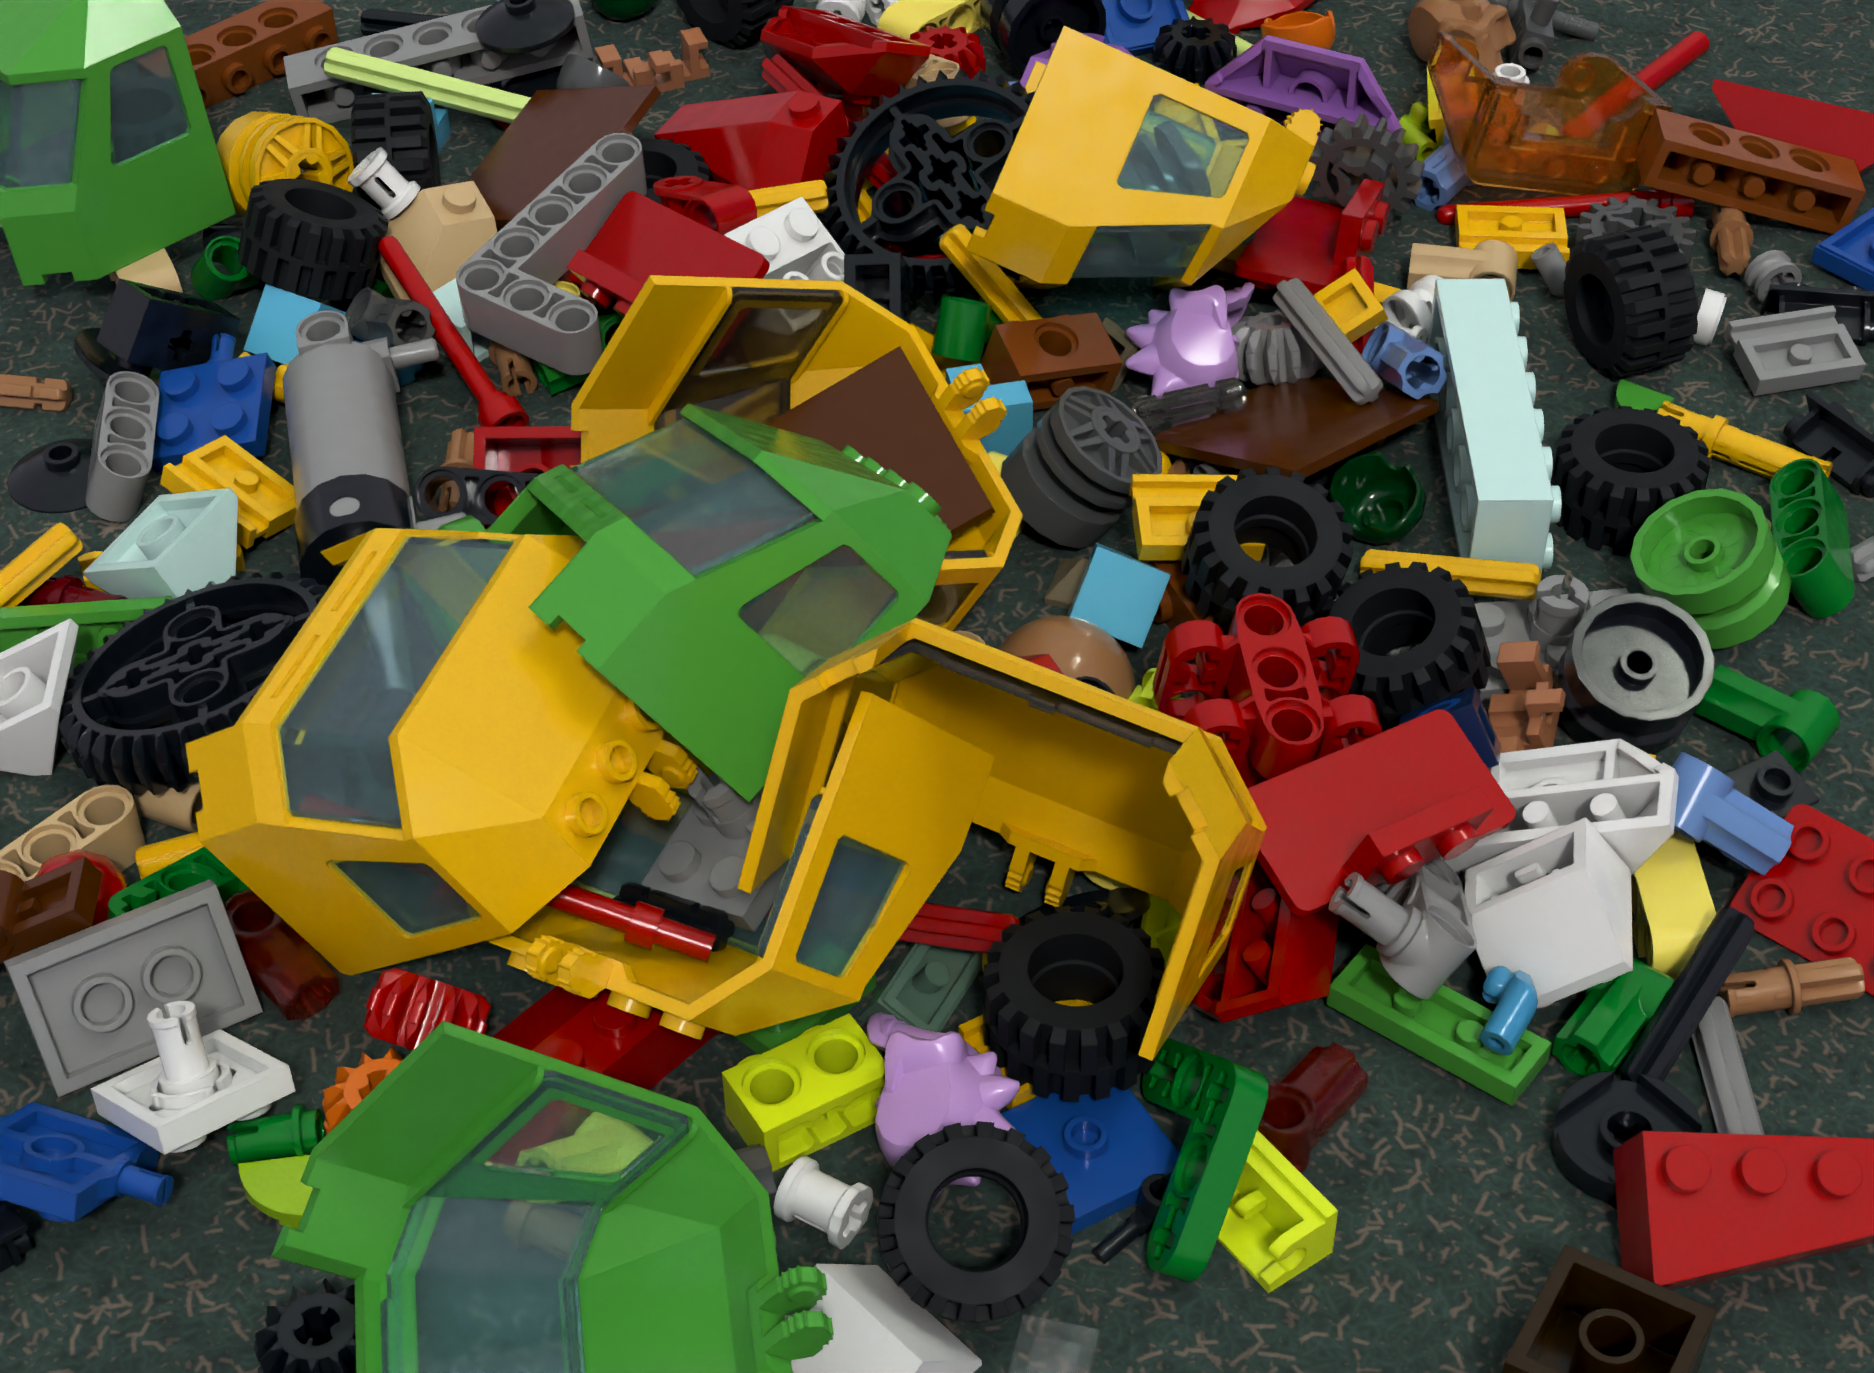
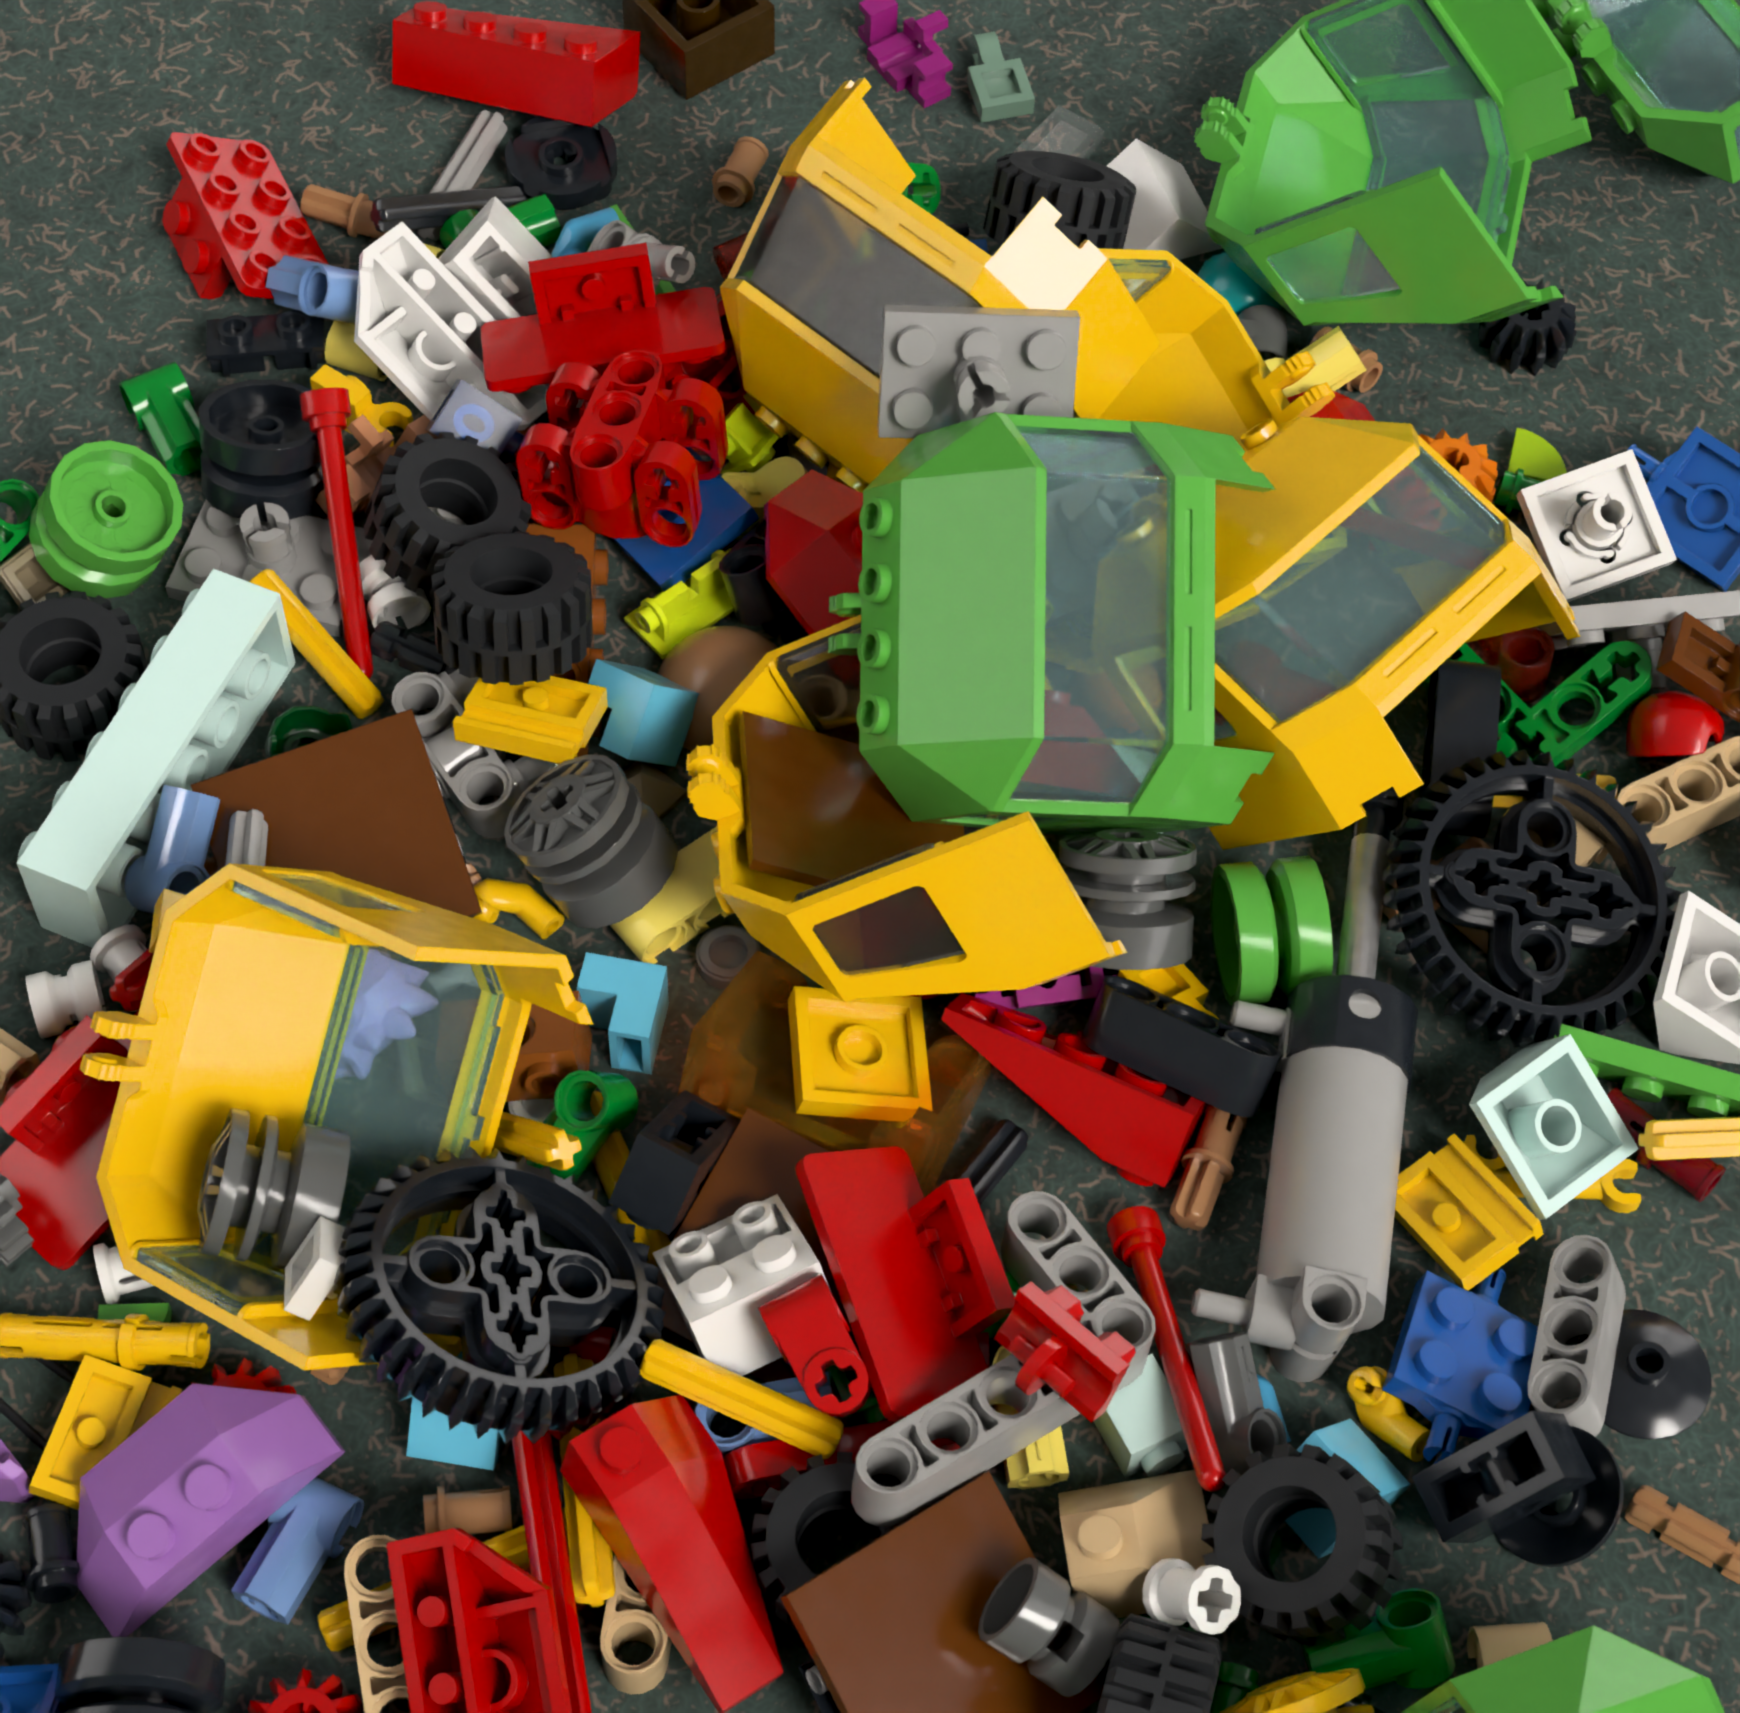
camera: 160 degrees left, 15 degrees up
(489, 158) = (1056, 1631): none -> dark grey wheel
(518, 205) = (1062, 1352): none -> red hips
(879, 603) = (973, 362): none -> light grey plate
(1409, 1192) = (740, 172): none -> medium nougat pin
(1573, 639) = (327, 414): none -> red piece

